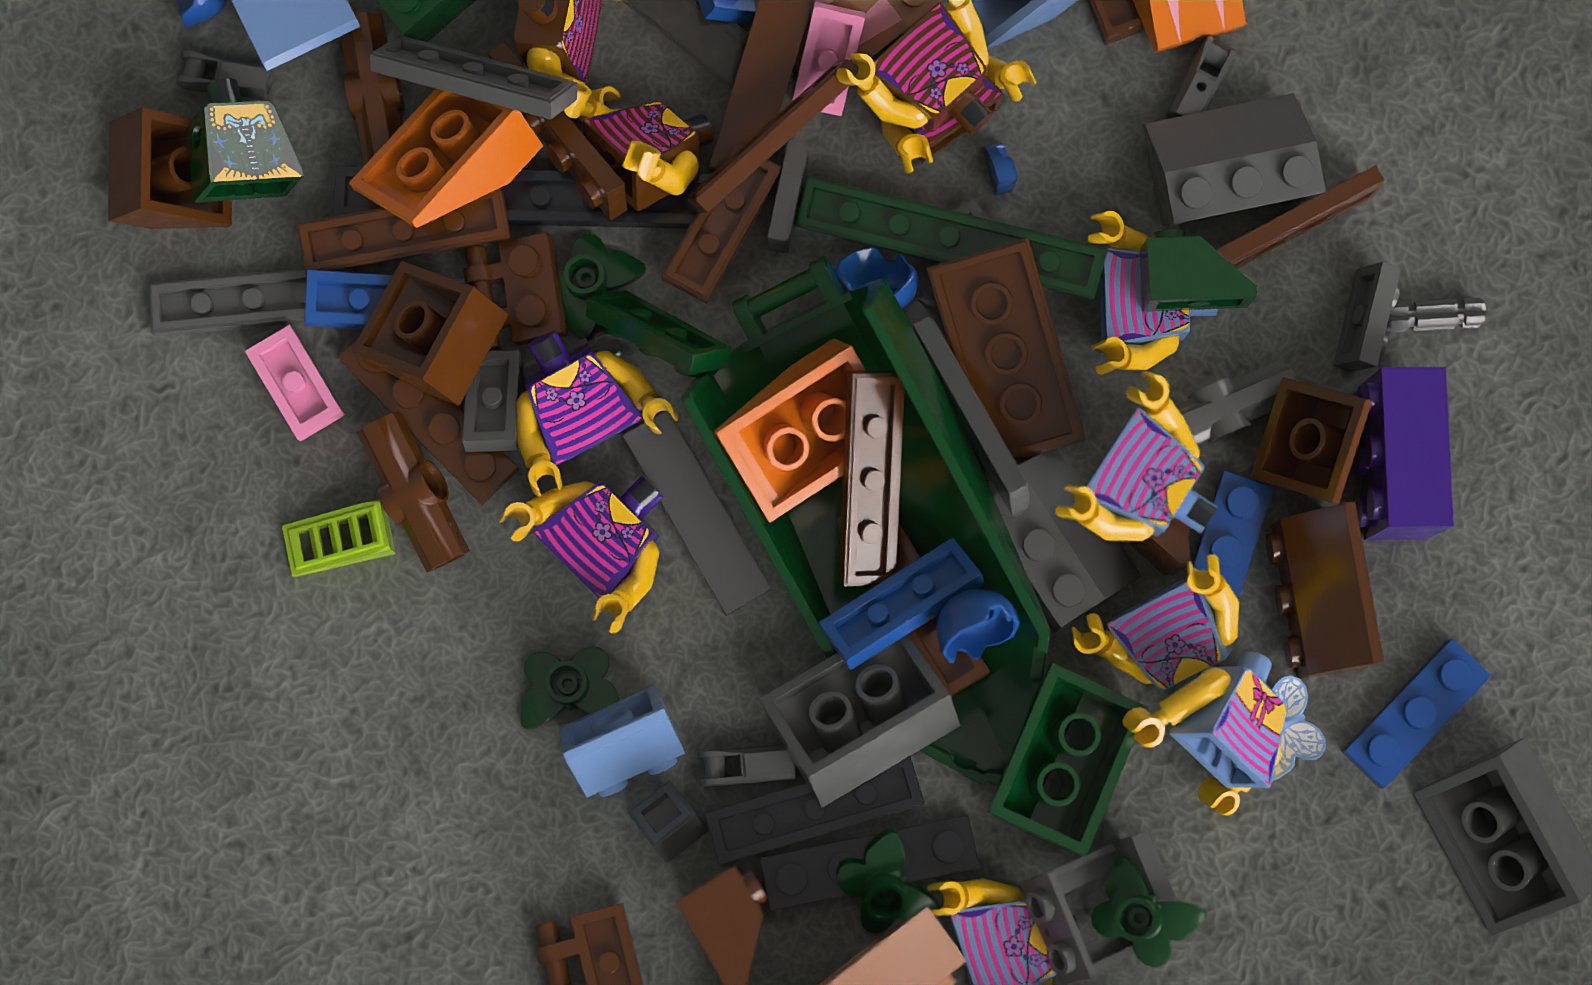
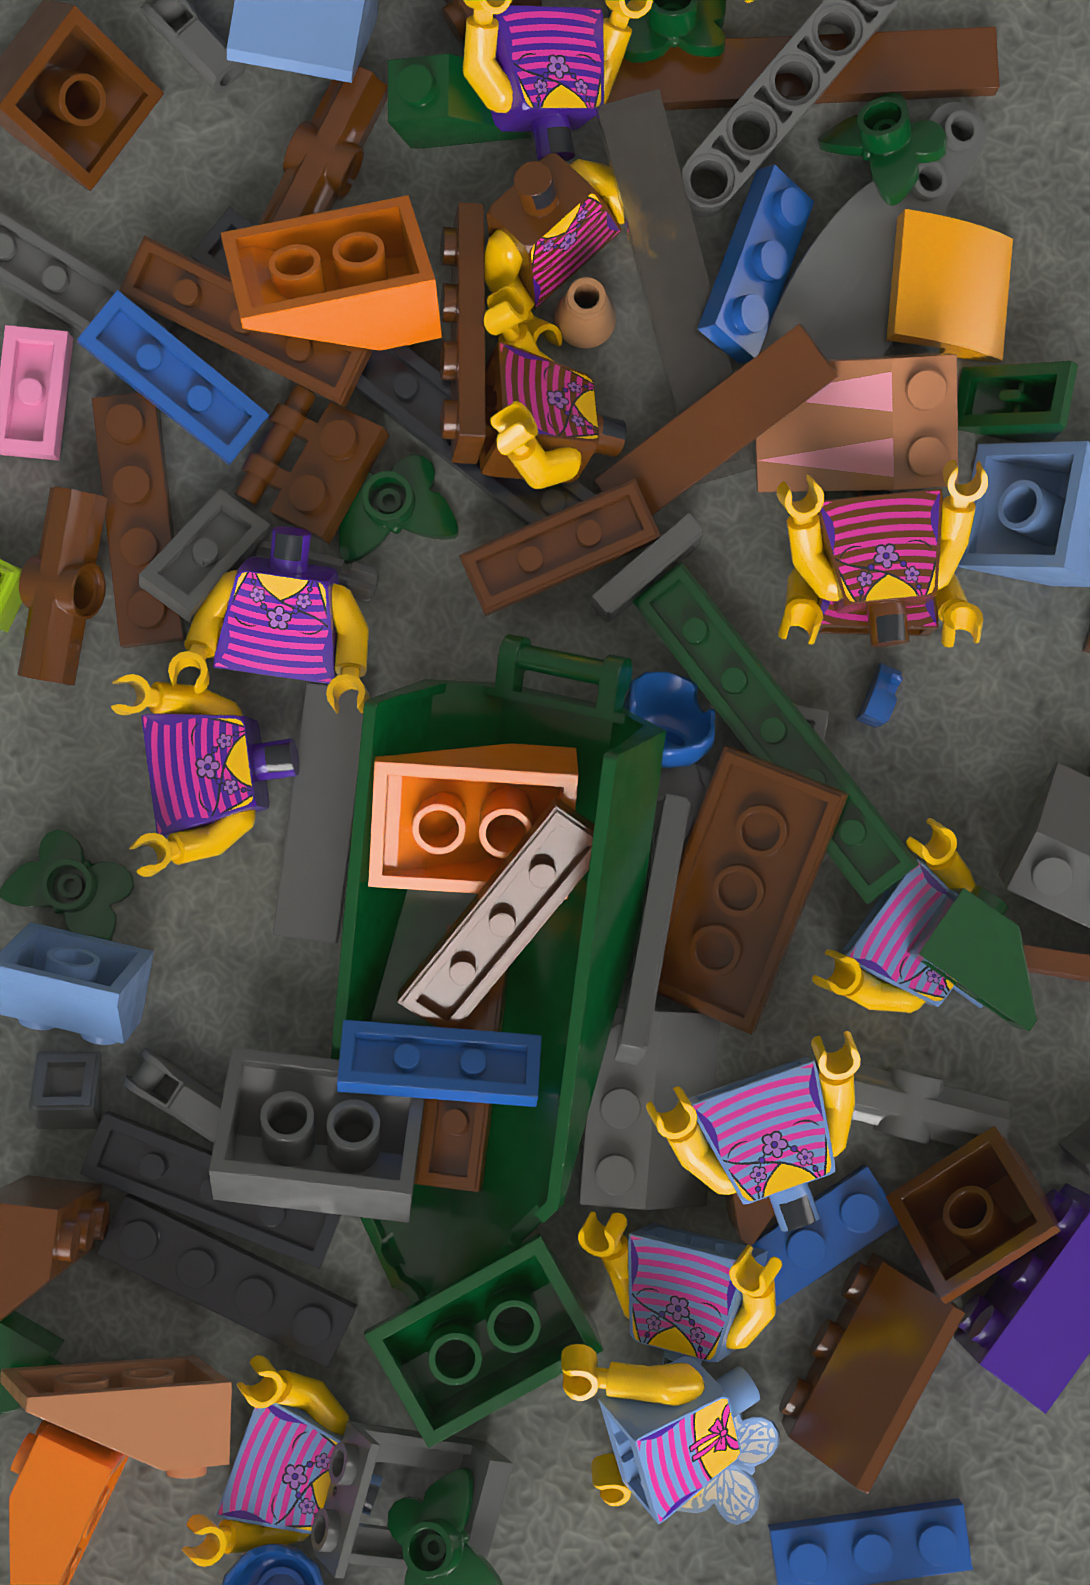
camera: 40 degrees right, 5 degrees up
(239, 148) = (145, 118): torso -> none
(430, 332) = (188, 443): reddish brown slope -> none
(474, 76) = (421, 218): dark grey tile -> none
(625, 73) = (585, 326): none -> medium nougat cone
(658, 333) = (410, 611): dark green plate -> none
(770, 138) = (668, 499): reddish brown tile -> none
(830, 38) = (802, 446): bright pink plate -> none
(882, 884) = (220, 1313): dark green animal -> none
(974, 622) = (495, 1136): blue hair -> none

